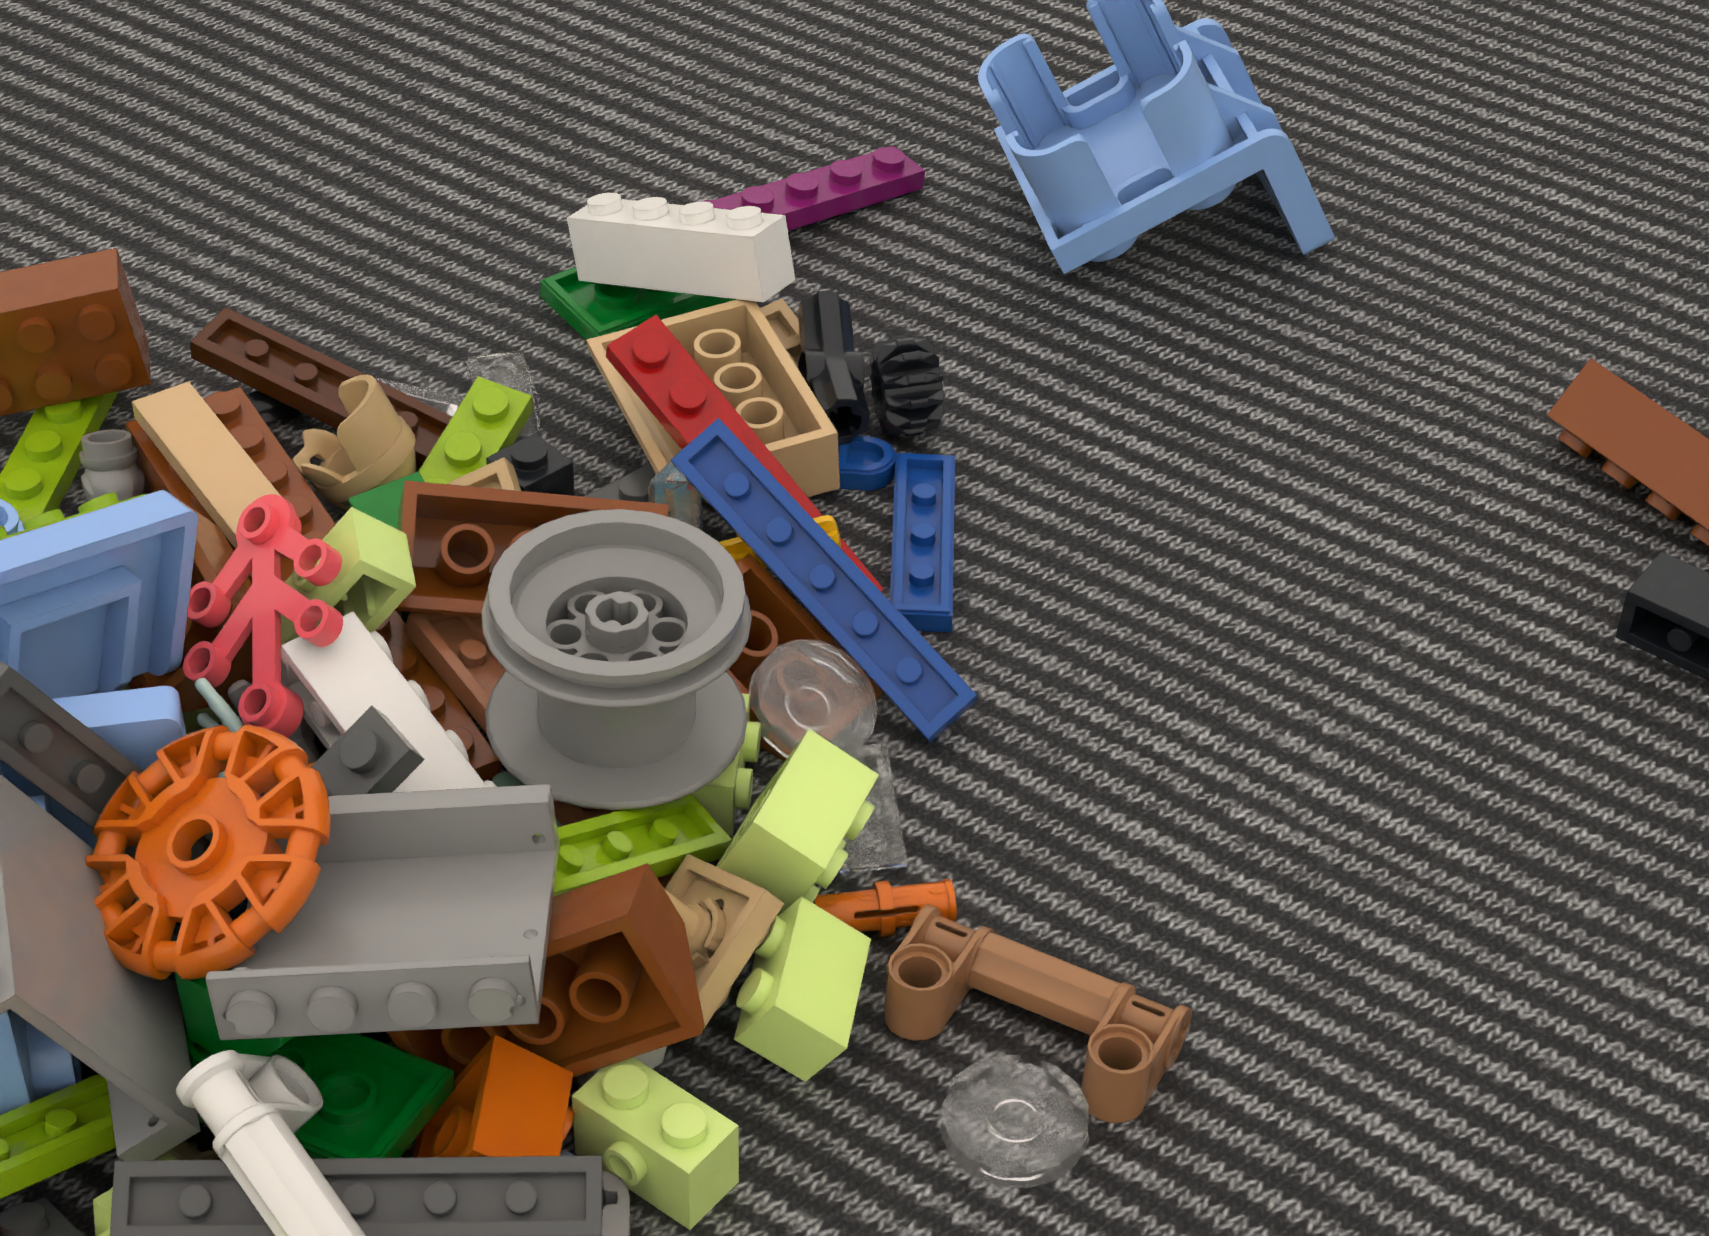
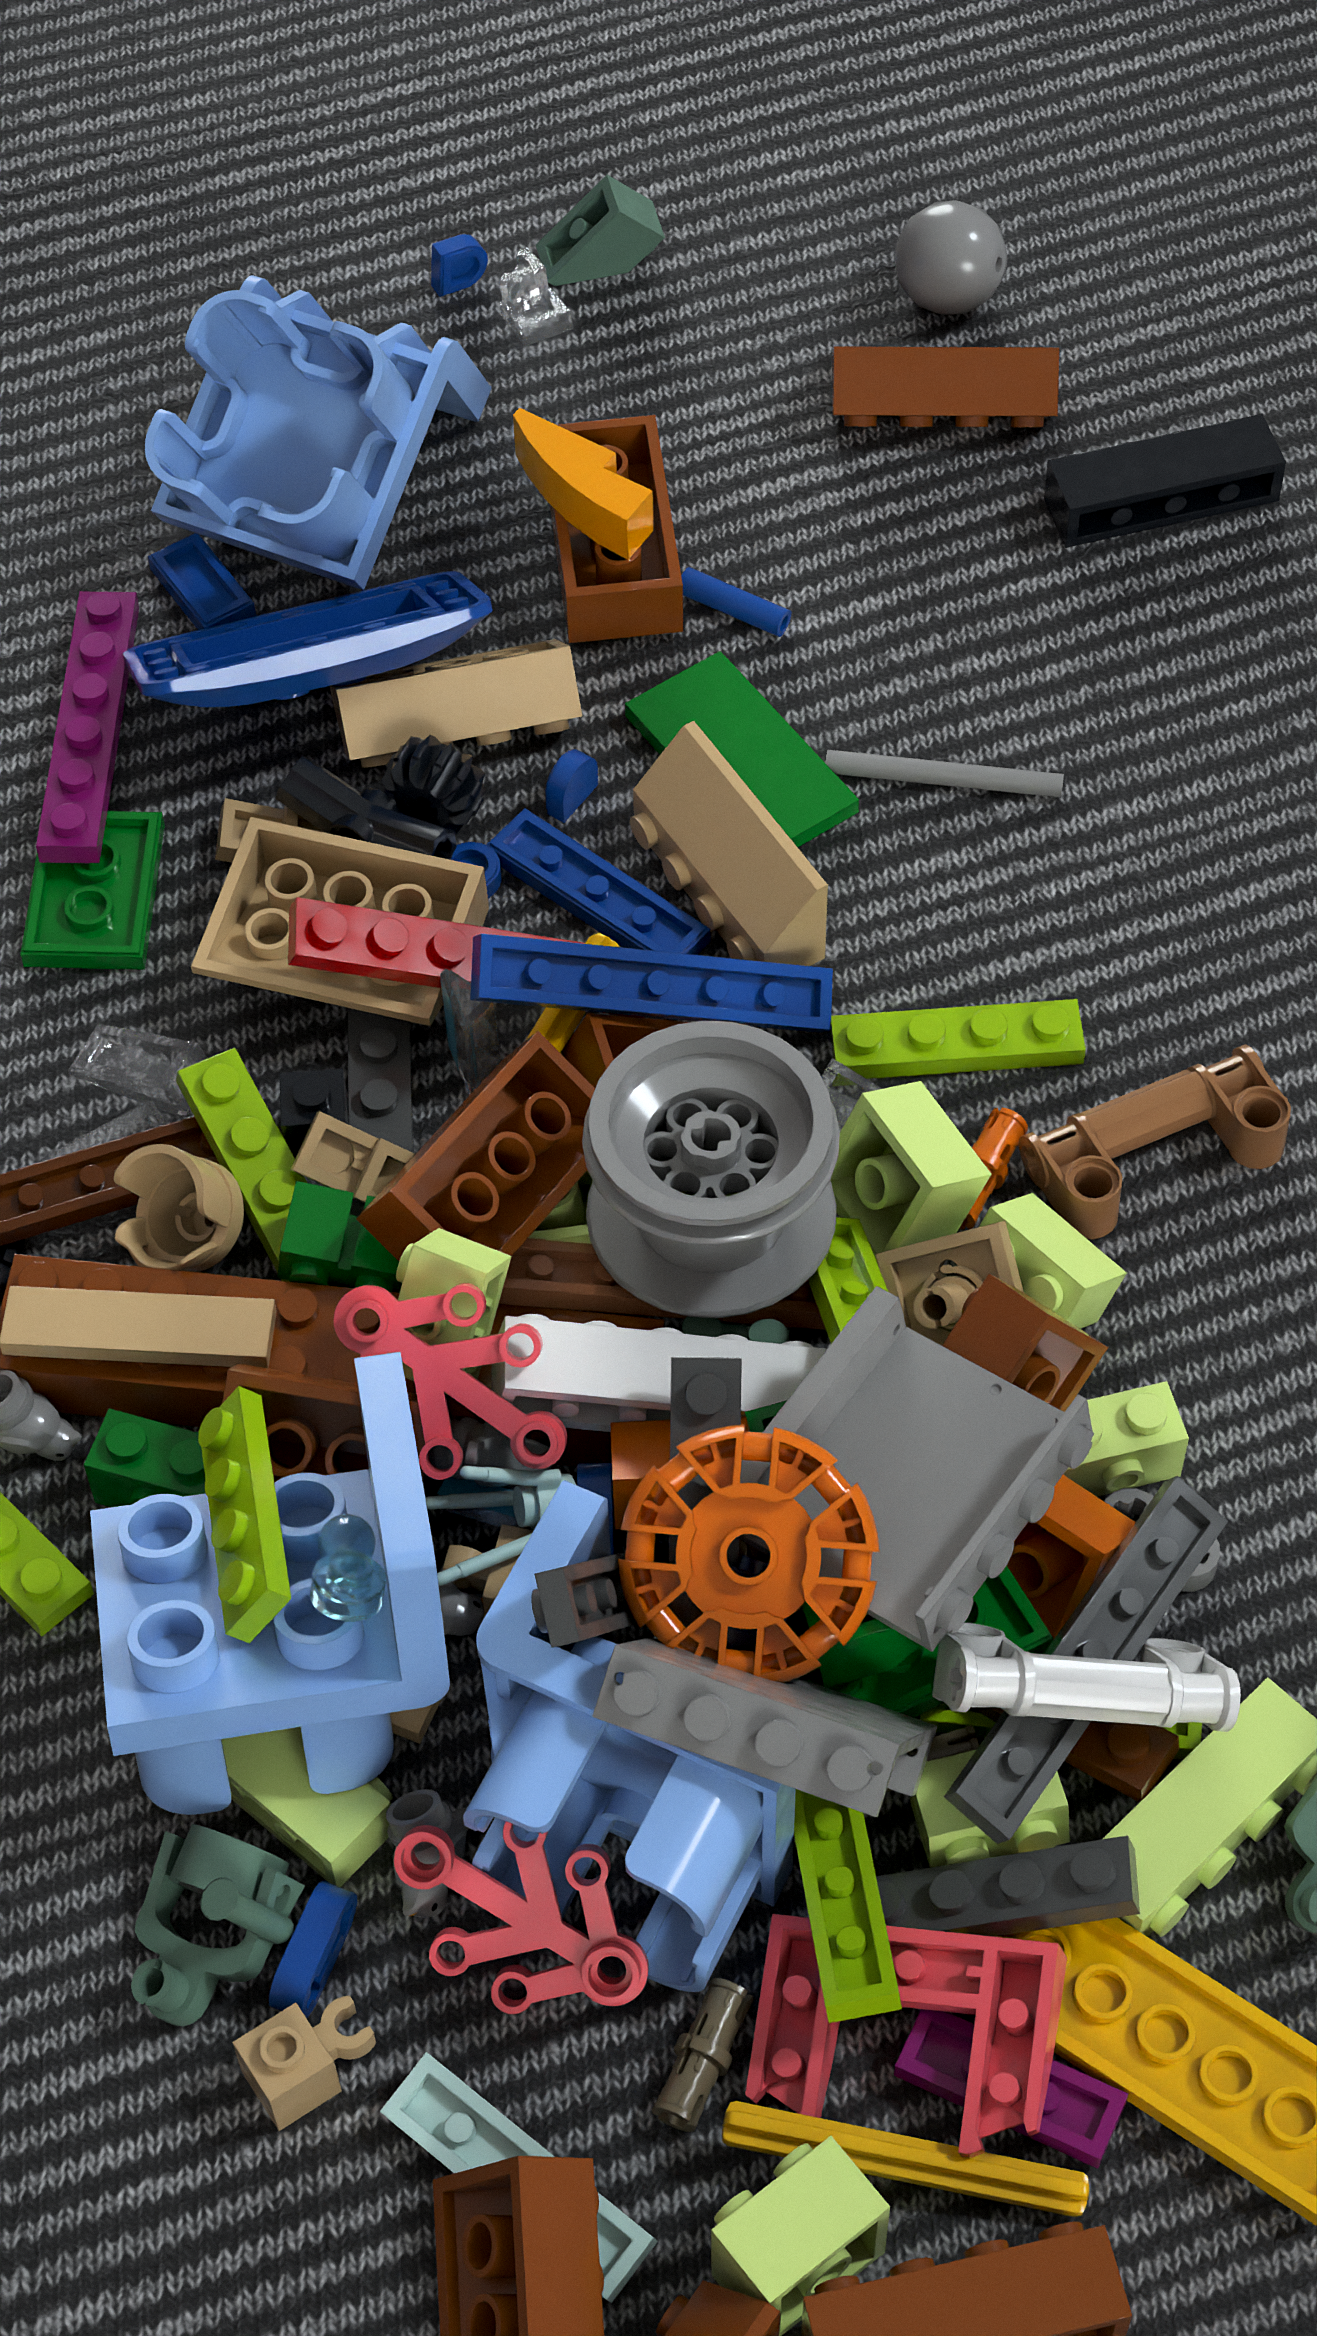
camera: 50 degrees left, 15 degrees up
(682, 247) = (144, 828): white brick -> none
(945, 253) = (310, 644): none -> blue wedge
(974, 202) = (200, 583): none -> blue tile
(1005, 465) = (570, 783): none -> blue tile
(1009, 829) = (959, 1039): none -> lime plate
(1014, 365) = (459, 700): none -> tan slope
(1014, 1122) = (1239, 1217): clear tile -> none
(1019, 582) = (729, 855): none -> tan slope
(1148, 553) = (753, 739): none -> green tile
(1261, 290) = (584, 484): none -> light orange slope
(1269, 354) = (599, 588): none -> dark orange brick
(1280, 680) = (945, 773): none -> light grey bar
(1300, 468) = (735, 602): none -> blue piece
(1429, 161) = (456, 264): none -> blue tile
(1450, 218) = (530, 304): none -> clear slope
(1558, 213) = (601, 235): none -> sand green slope

